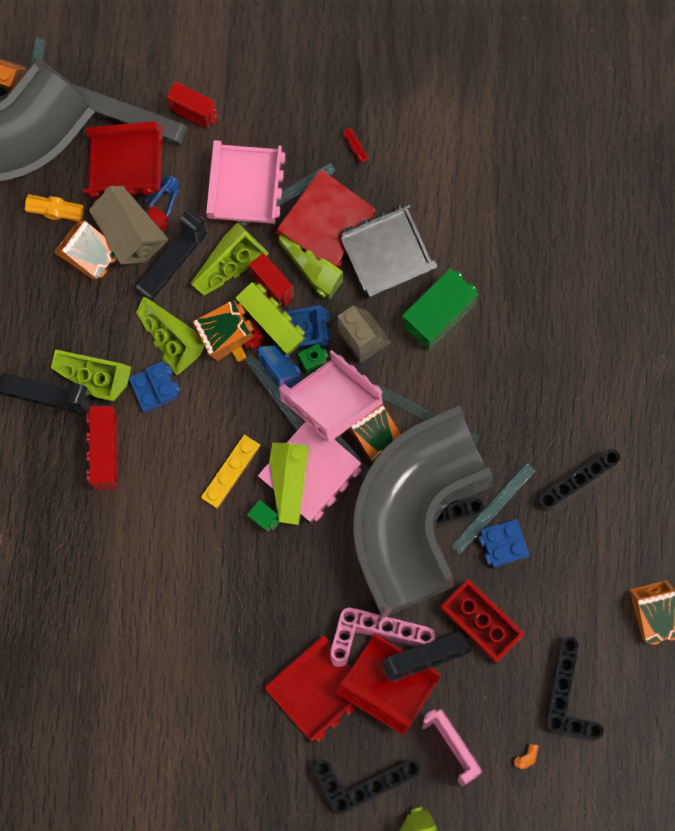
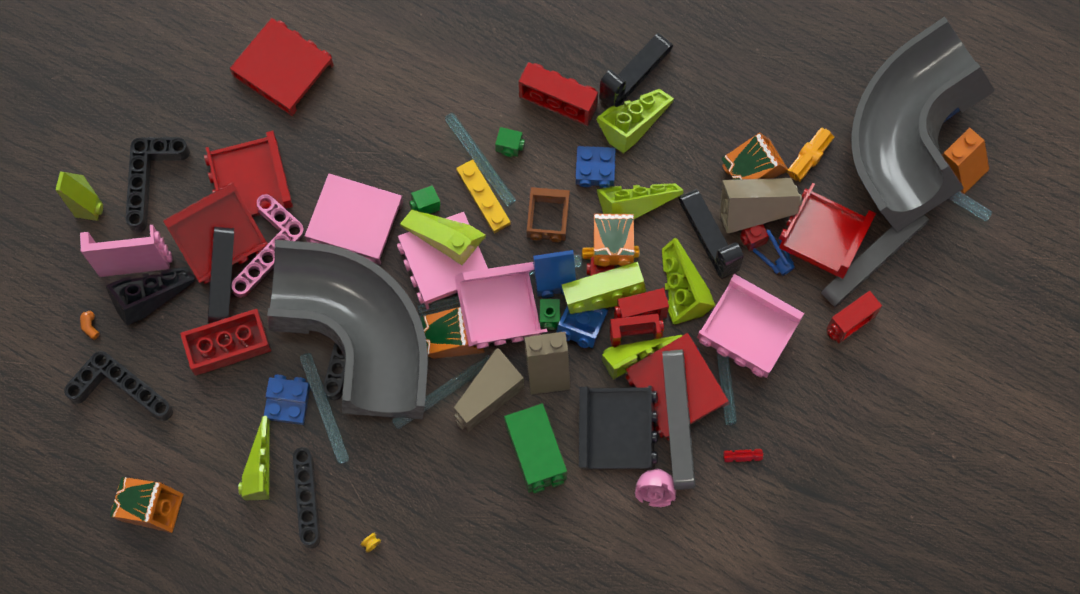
camera: 115 degrees right, 5 degrees down
(169, 471) = (509, 142): none -> green brick
(193, 718) = (281, 65): none -> red panel
(196, 492) = (480, 159): none -> clear light blue axle
(215, 389) = (547, 196): none -> dark orange window
(301, 292) = (635, 326): none -> red panel
(311, 571) = (353, 217): none -> bright pink panel
(356, 201) = (678, 420): none -> dark grey beam
(411, 372) = (488, 392): none -> dark tan slope
(420, 198) = (655, 487): none -> bright pink cylinder
(476, 723) = (143, 295): none -> black wedge
(585, 531) = (256, 472): none -> lime wedge
(587, 407) = (370, 542): none -> yellow bush

